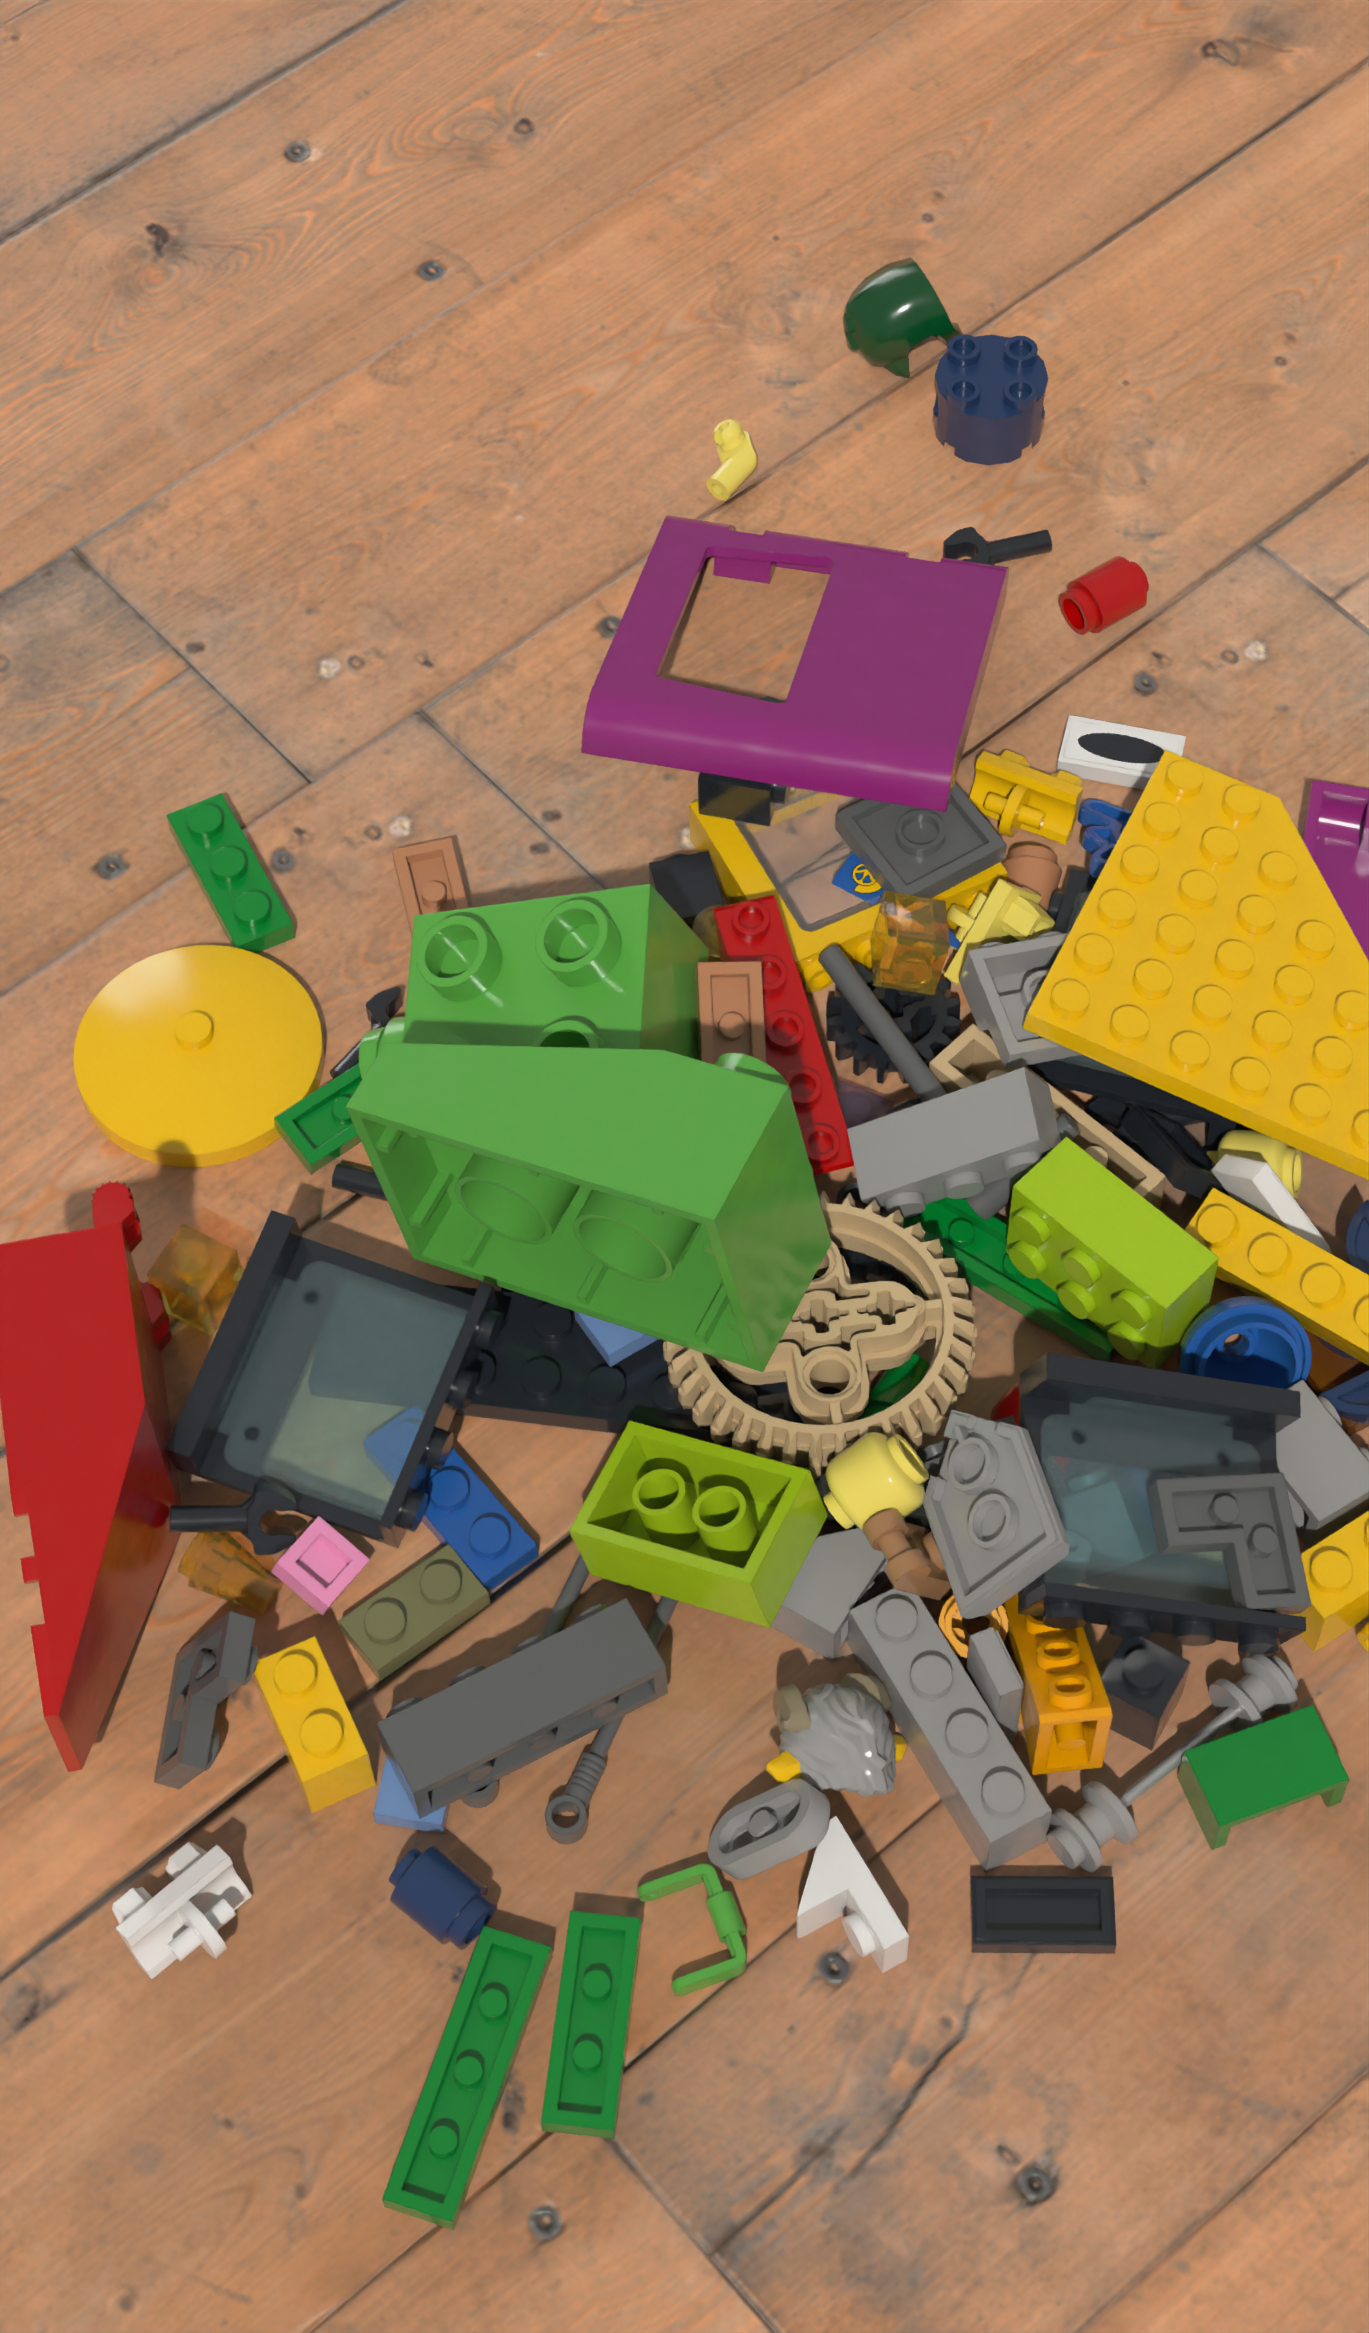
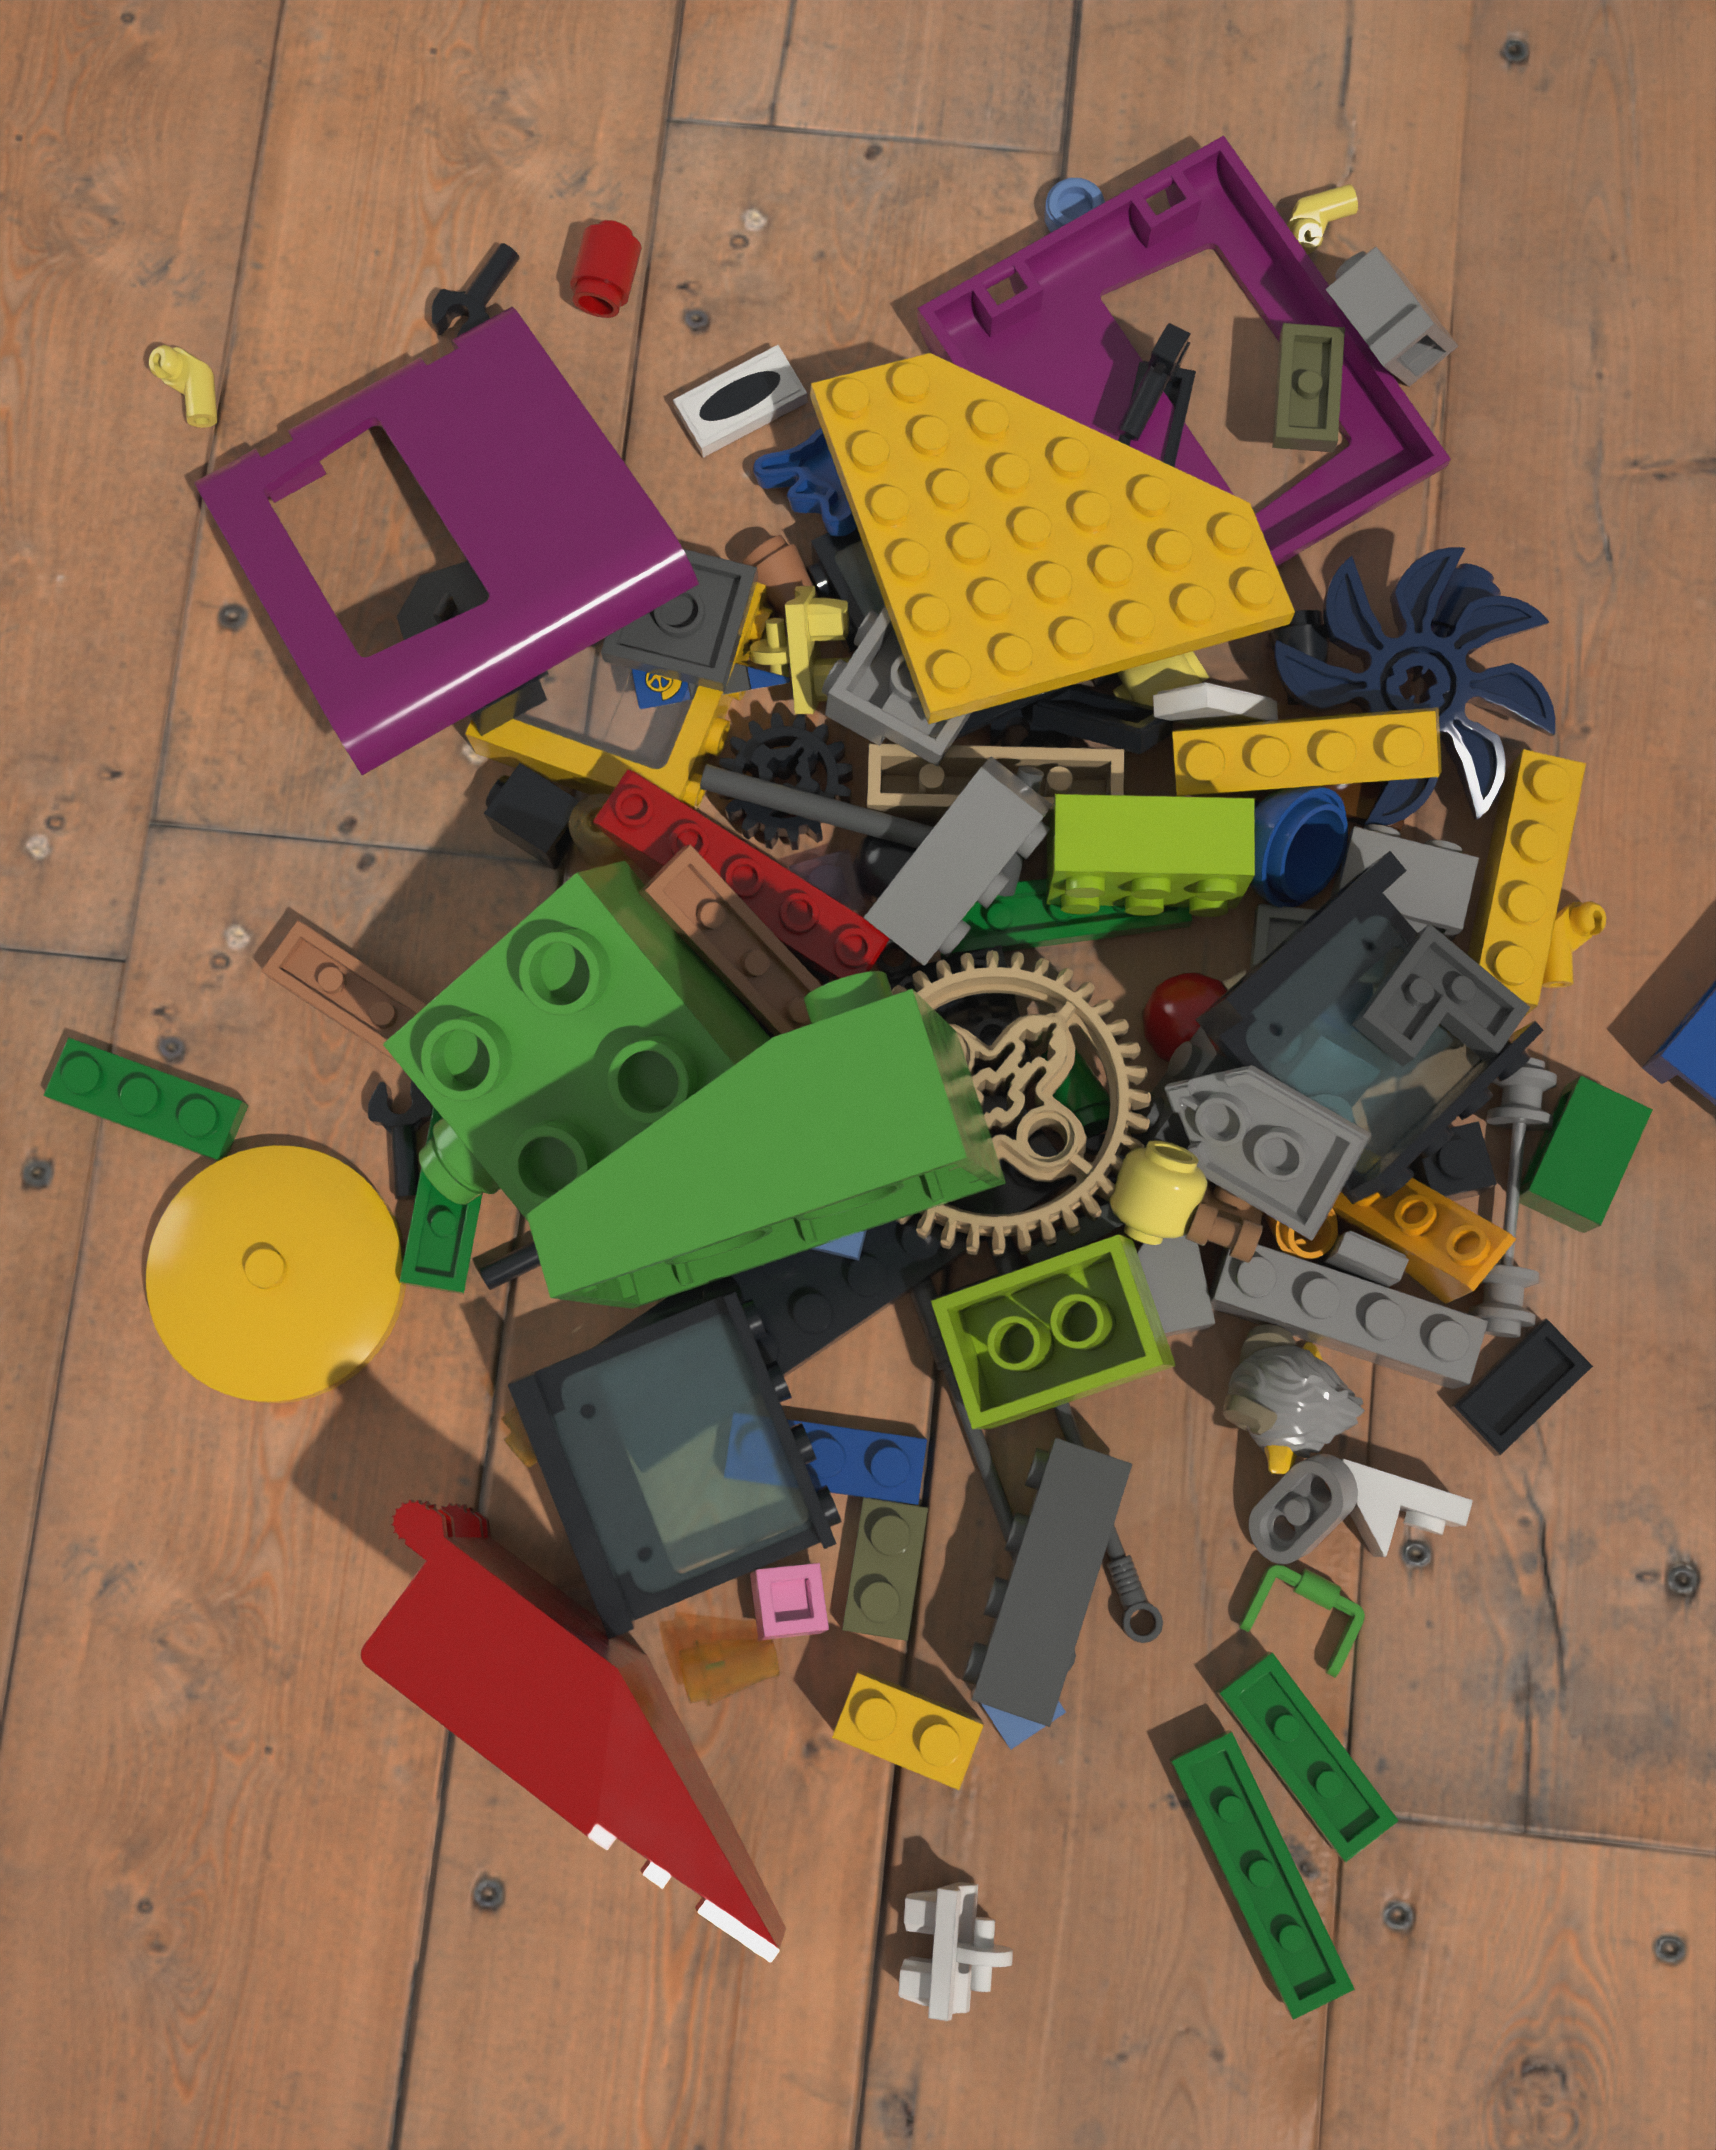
camera: 40 degrees left, 20 degrees up
(196, 1278) = (472, 1465): clear yellow brick -> none
(201, 1679) = (800, 1777): dark grey plate -> none
(241, 1518) = (711, 1623): black bar -> none
(441, 1896) = (1118, 1764): dark blue brick -> none
(894, 313) = (204, 140): dark green piece -> none
(909, 943) = (758, 715): clear yellow brick -> none
(990, 397) = (349, 156): dark blue brick -> none
(1026, 797) = (712, 501): yellow hips -> none

